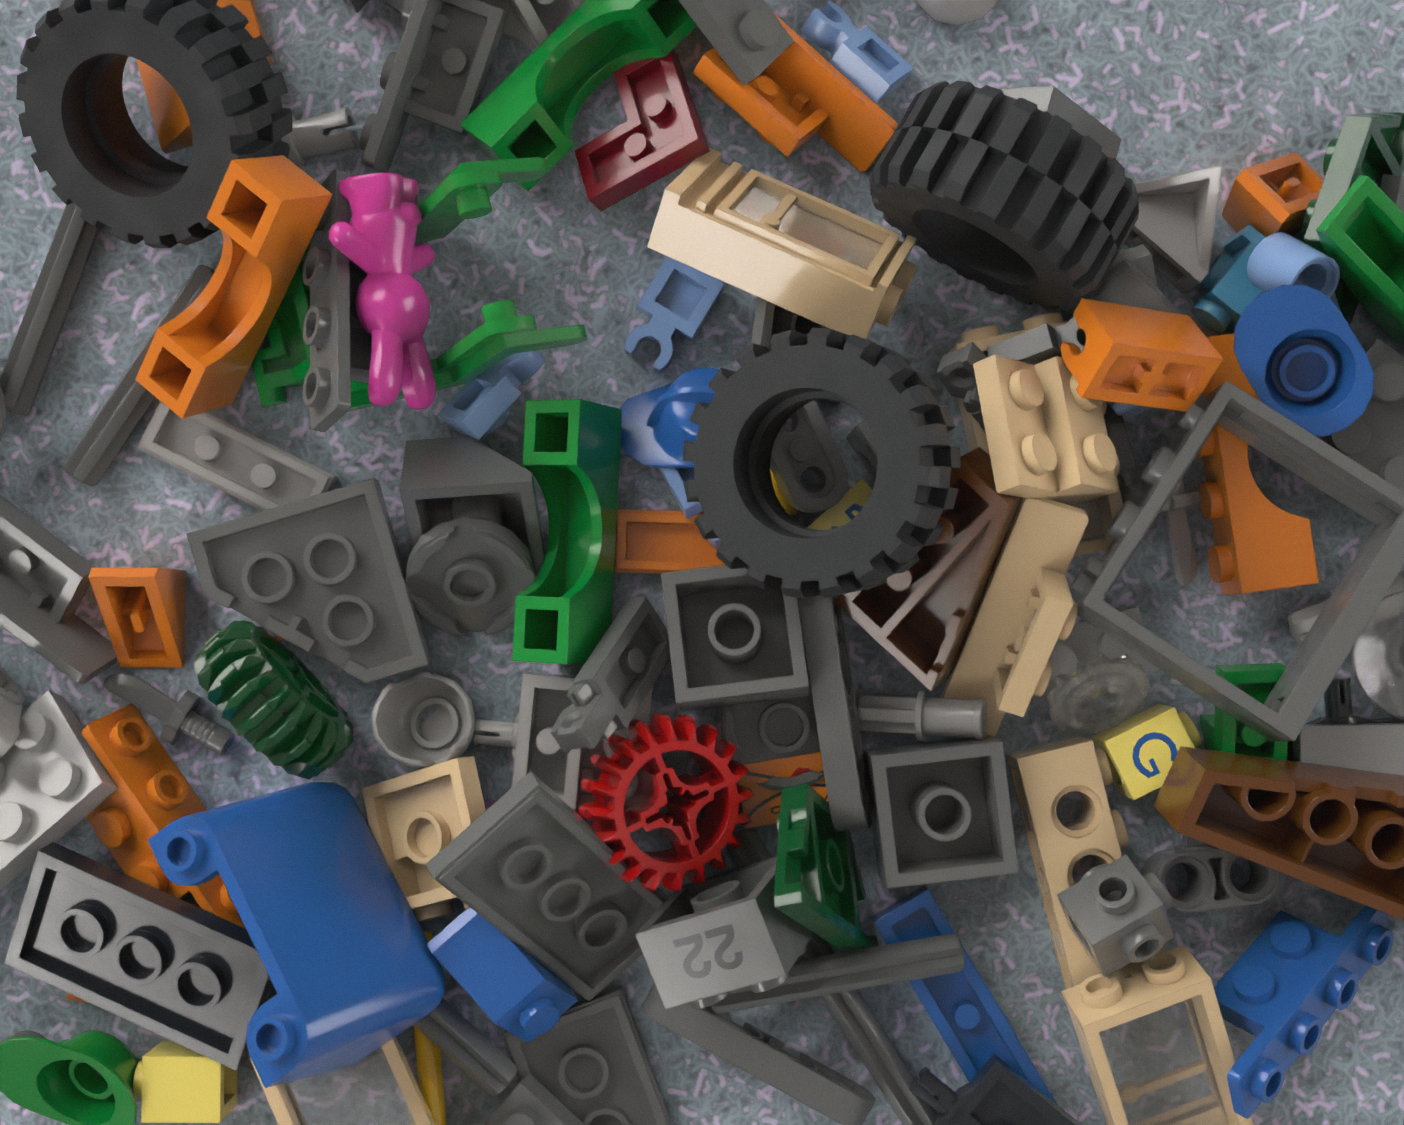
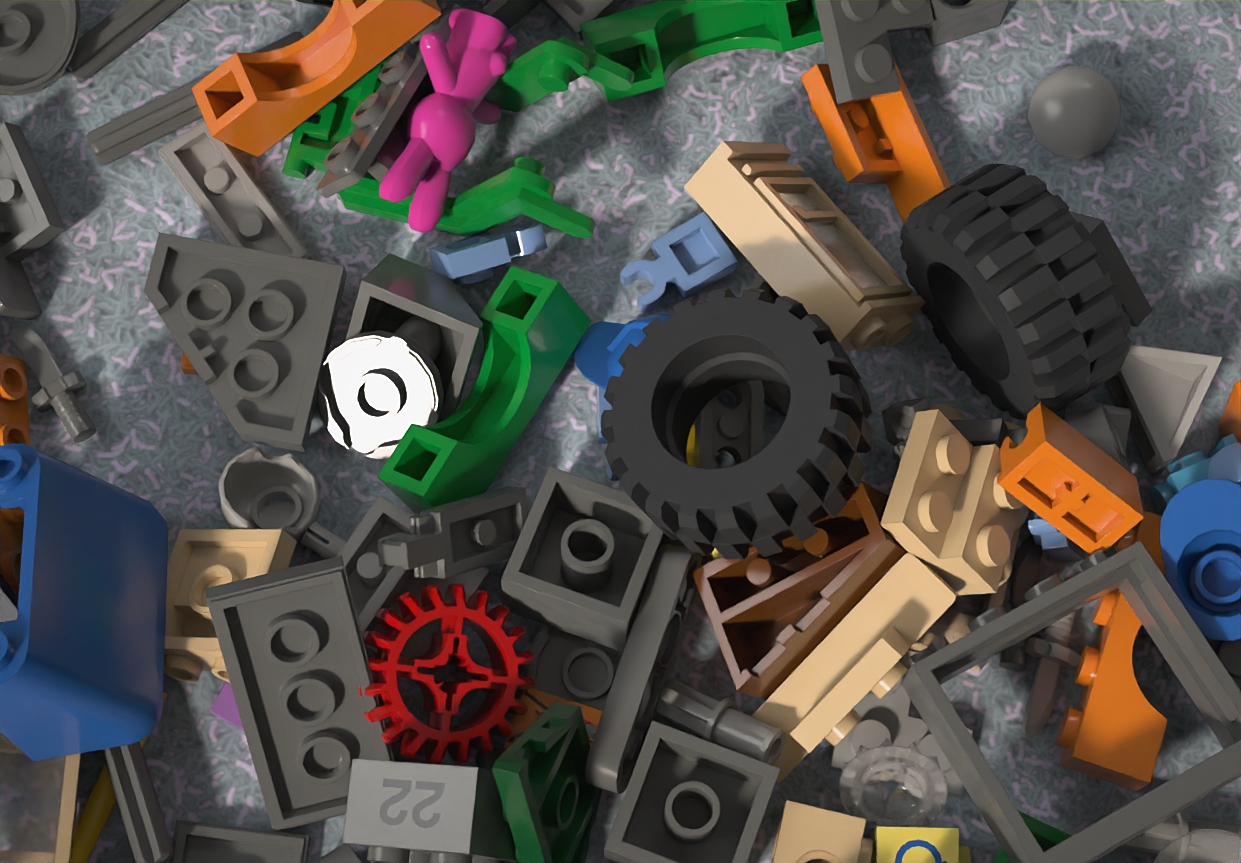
camera: 25 degrees right, 15 degrees down
(143, 614) = (81, 283): orange slope -> none
(273, 699) = (151, 406): dark green gear -> none
(501, 976) = (212, 748): blue slope -> none
(655, 139) = (745, 110): dark red plate -> none
(660, 543) = (562, 445): orange tile -> none
(856, 53) = (950, 131): medium blue plate -> none

